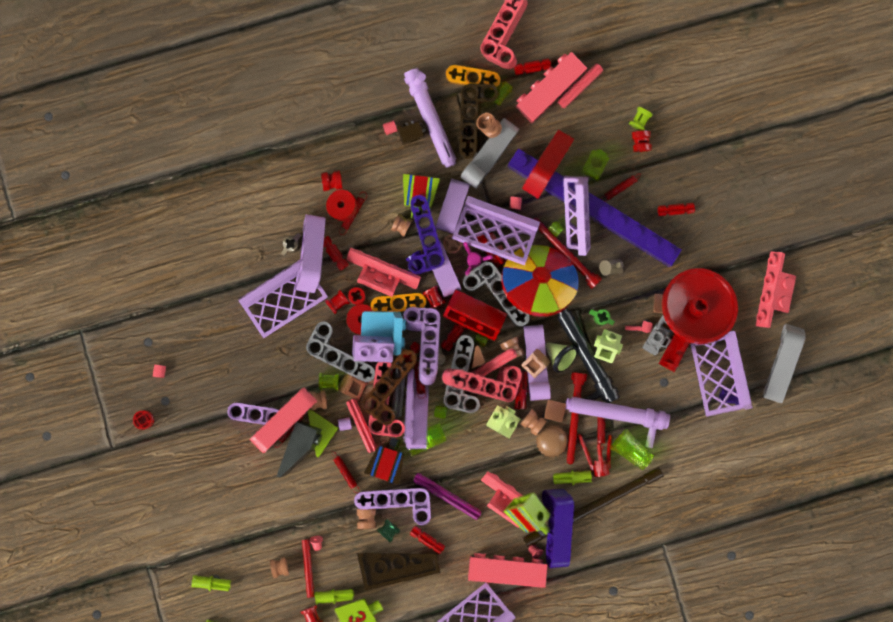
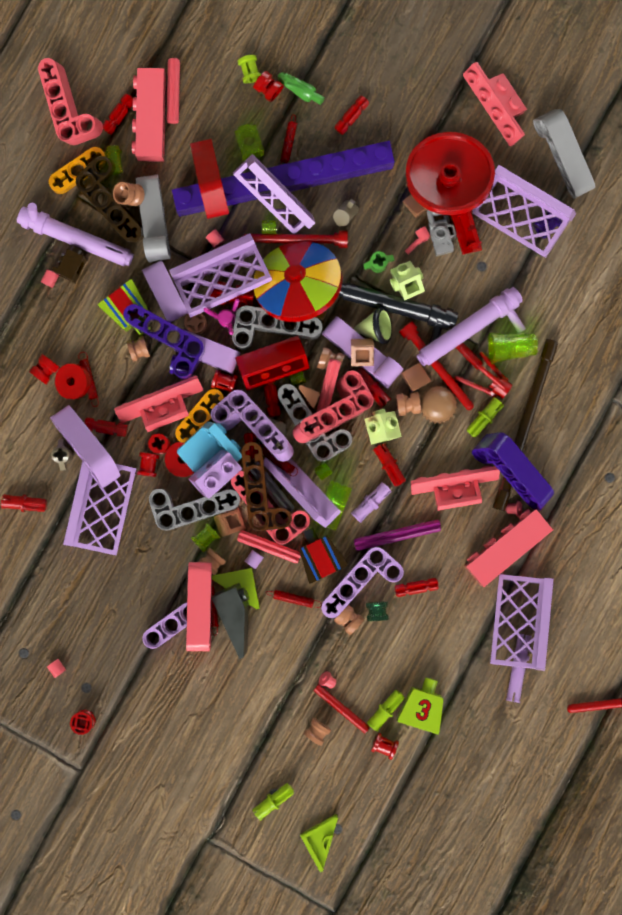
camera: 40 degrees left, 0 degrees up
(238, 250) = (23, 503): none -> red axle
(392, 568) = (411, 639): dark brown wing -> none
(450, 460) = (371, 502): none -> lavender pin
(485, 448) = (389, 464): none -> red axle
(528, 514) = (480, 482): lime torso -> none
(661, 163) = (301, 88): none -> bright green piece

